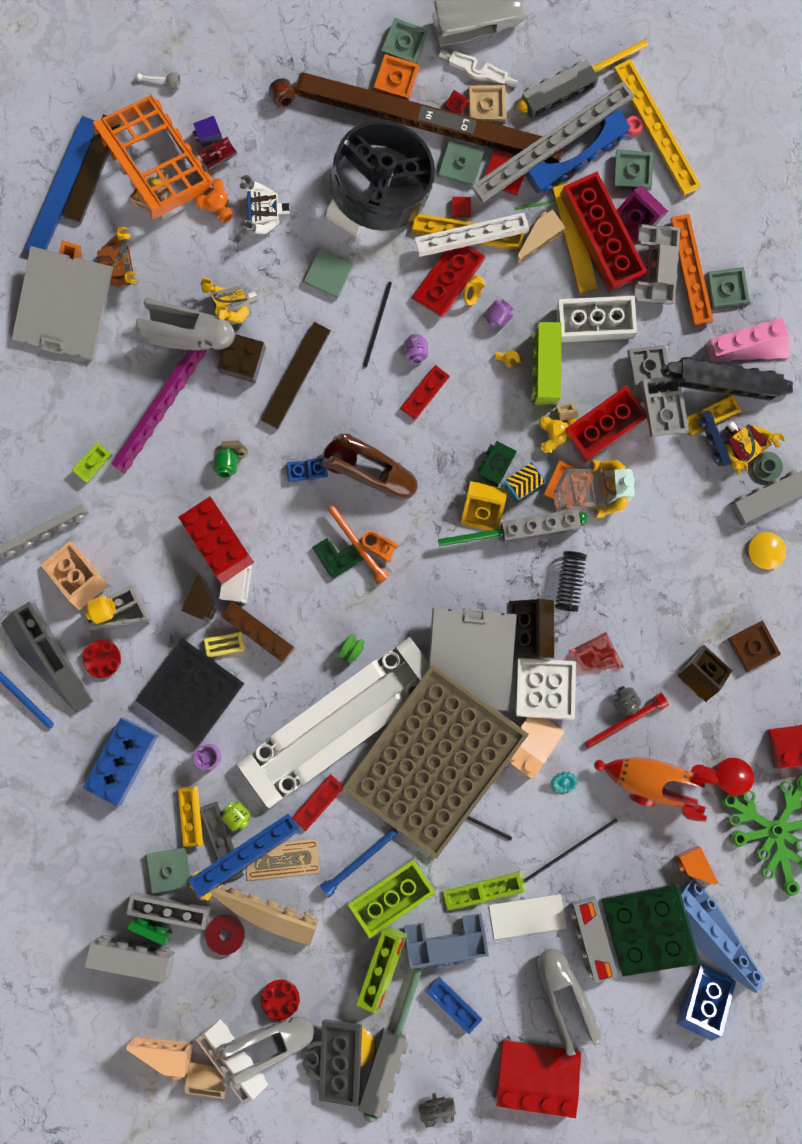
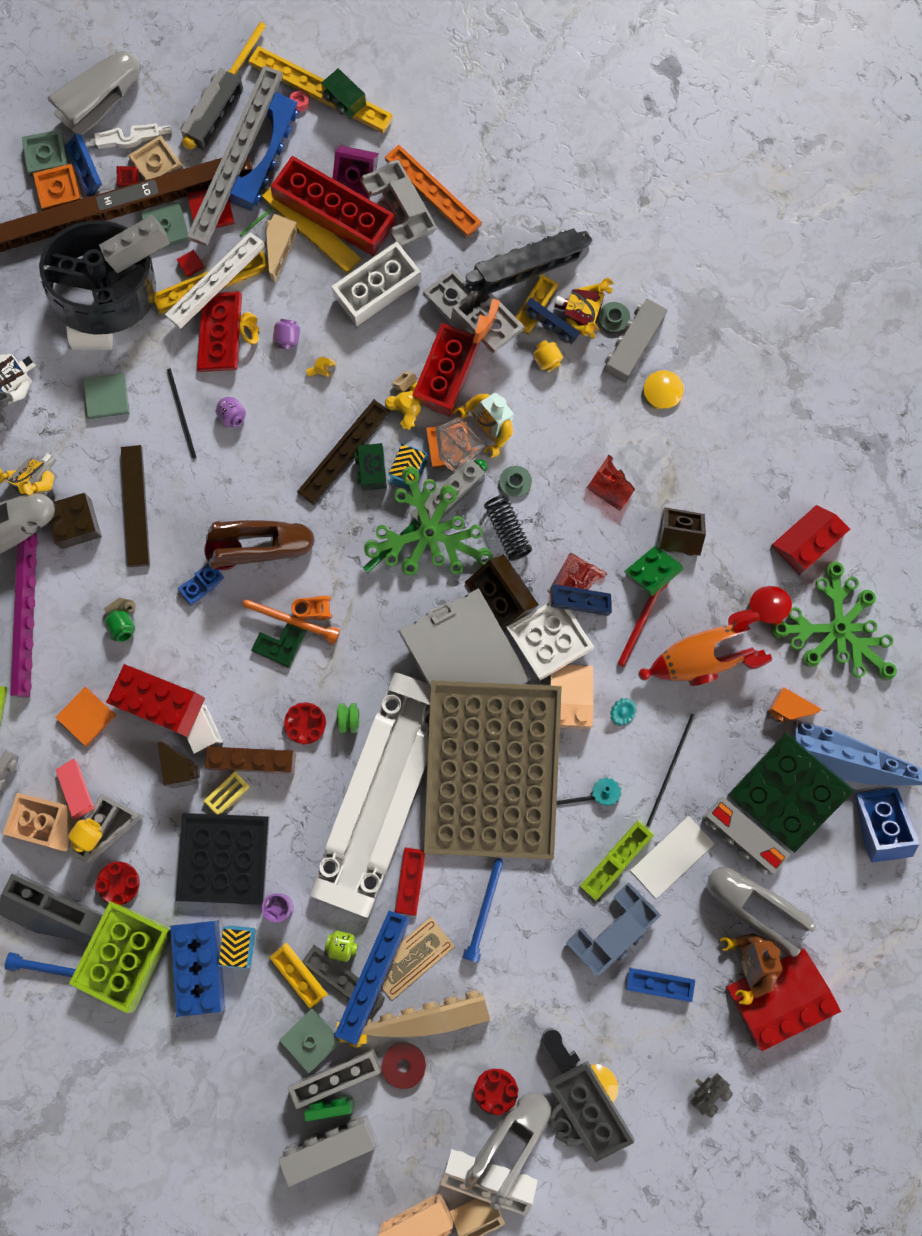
camera: 30 degrees left, 5 degrees down
(70, 716) = (121, 957): none -> lime slope
(114, 567) = (74, 789): none -> coral tile
(157, 515) = (86, 716): none -> orange tile
(159, 765) = (236, 947): none -> piece
(316, 630) = (304, 723): none -> red dish
(345, 1001) = (553, 1042): none -> black leg
(381, 969) = (571, 996): lime brick -> none
(387, 1061) = (634, 1081): piece -> none
(391, 897) = (536, 923): lime brick -> none
(425, 392) = (264, 446): red tile -> none
(426, 169) = (134, 244): none -> light grey brick
(428, 71) = (83, 165): none -> blue plate
(483, 437) = (343, 452): none -> dark brown tile
(483, 506) = (383, 509): yellow slope -> none
(510, 834) = (606, 791): none -> teal piece
(519, 564) = (451, 541): none -> bright green plant
(538, 1042) = (759, 962): none -> dark orange torso
(547, 363) = (358, 349): lime brick -> none
(589, 675) = (580, 600): none -> dark blue plate
(594, 554) = (511, 490): none -> sand green piece
(626, 701) = (629, 601): dark grey head -> none
(633, 169) = (323, 137): sand green plate -> none
(659, 410) = (485, 323): none -> orange slope
(661, 689) = (653, 570): none -> green plate
(671, 144) = (343, 93): none -> dark green brick
(674, 599) = (611, 484): none -> clear red slope
(693, 464) = (547, 356): none -> yellow head
(727, 288) = (475, 187): sand green tile -> none
(754, 646) = (709, 479): reddish brown plate -> none
(755, 342) = (534, 214): bright pink wedge -> none

